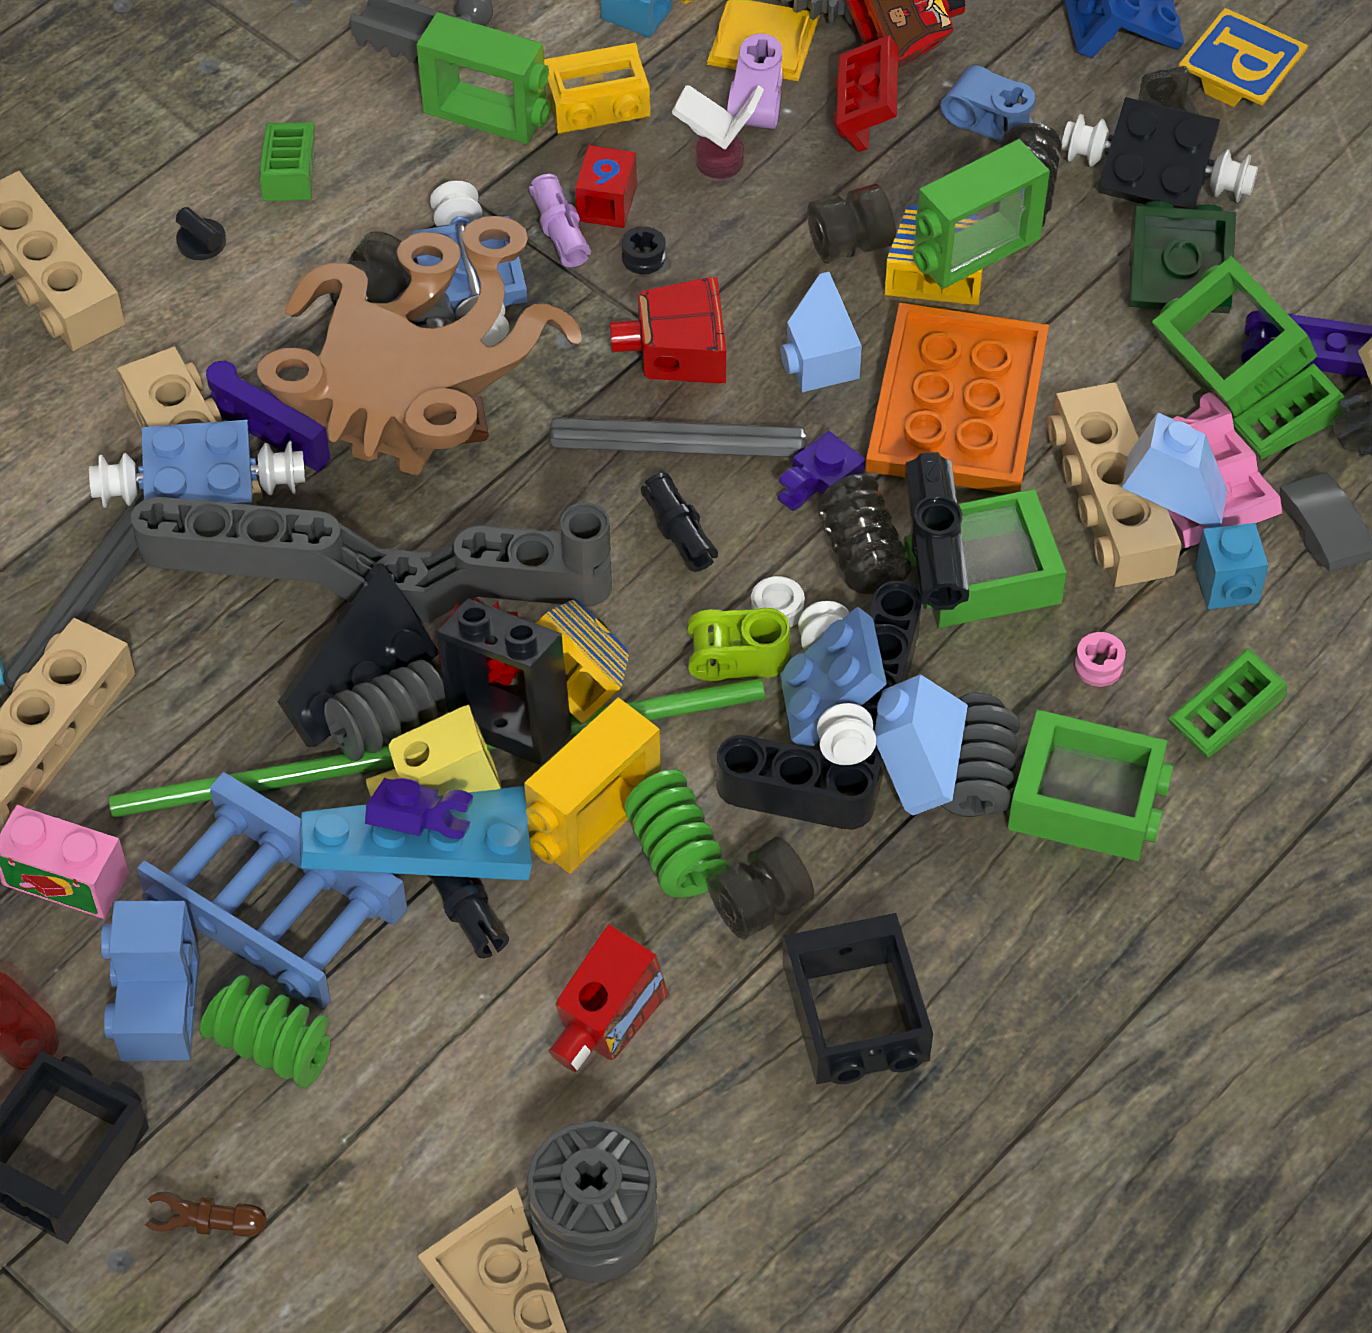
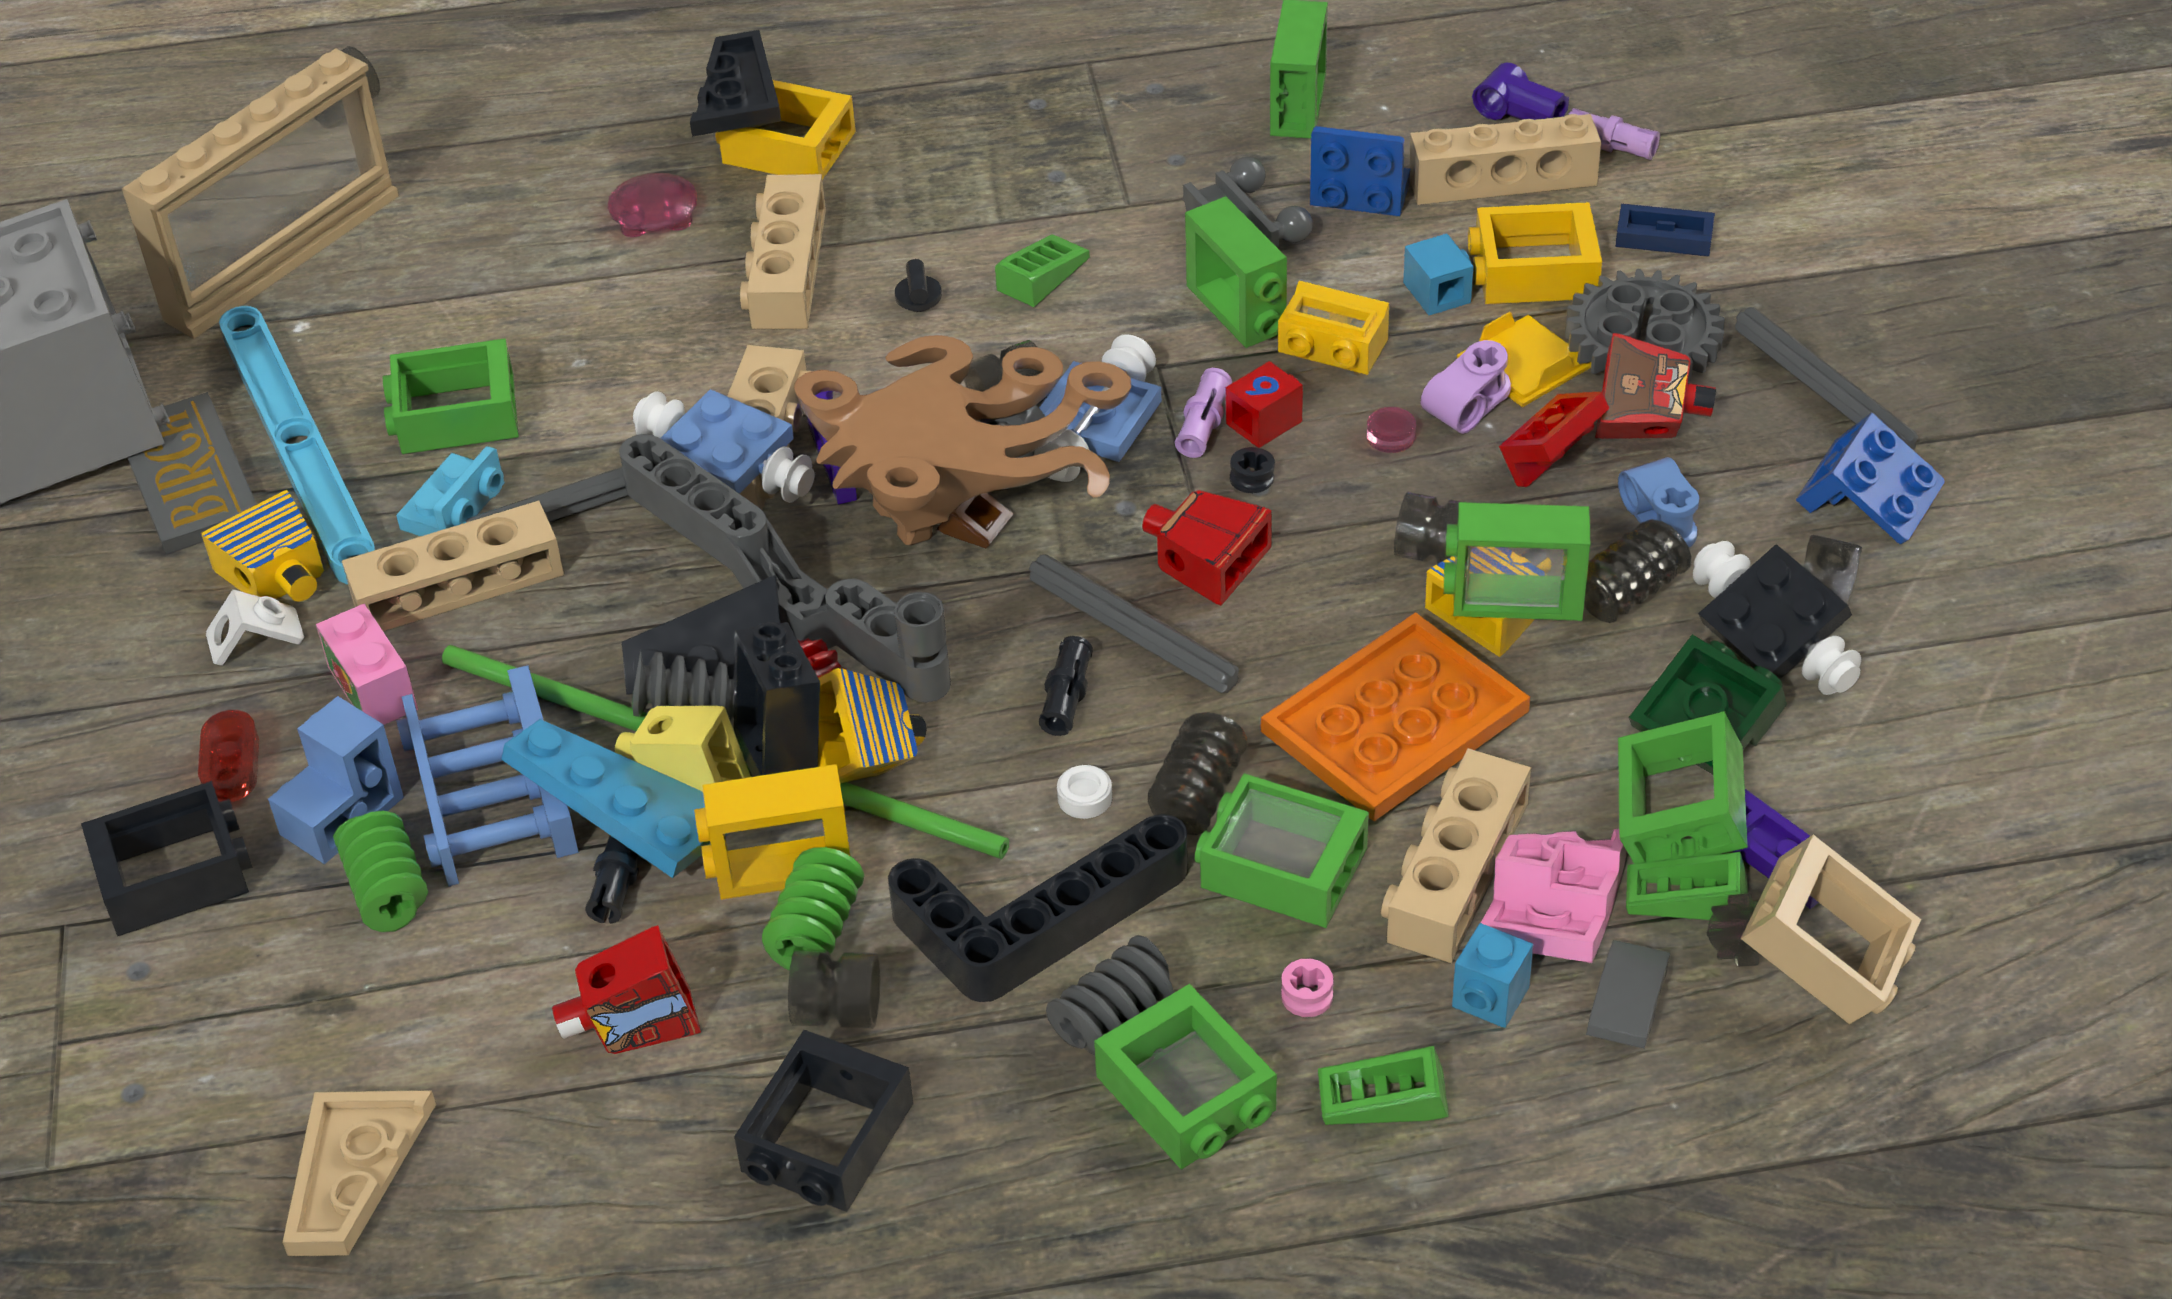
camera: 40 degrees right, 10 degrees down
(243, 1219) = (216, 974): reddish brown piece -> none
(411, 808) = (615, 758): dark purple plate -> none
(593, 1231) = (465, 1133): dark grey wheel -> none
(710, 119) = (1397, 389): white bracket -> none
(739, 644) = (1015, 802): lime piece -> none
(818, 468) = (1235, 701): dark purple plate -> none
(821, 339) = (1321, 606): light blue slope -> none
(833, 682) = (1002, 894): medium blue plate -> none
(920, 741) = (1063, 945): light blue slope -> none
(936, 531) = (1234, 791): black piece -> none
(1177, 471) = (1500, 863): light blue slope -> none
(1242, 59) = (1942, 574): piece -> none

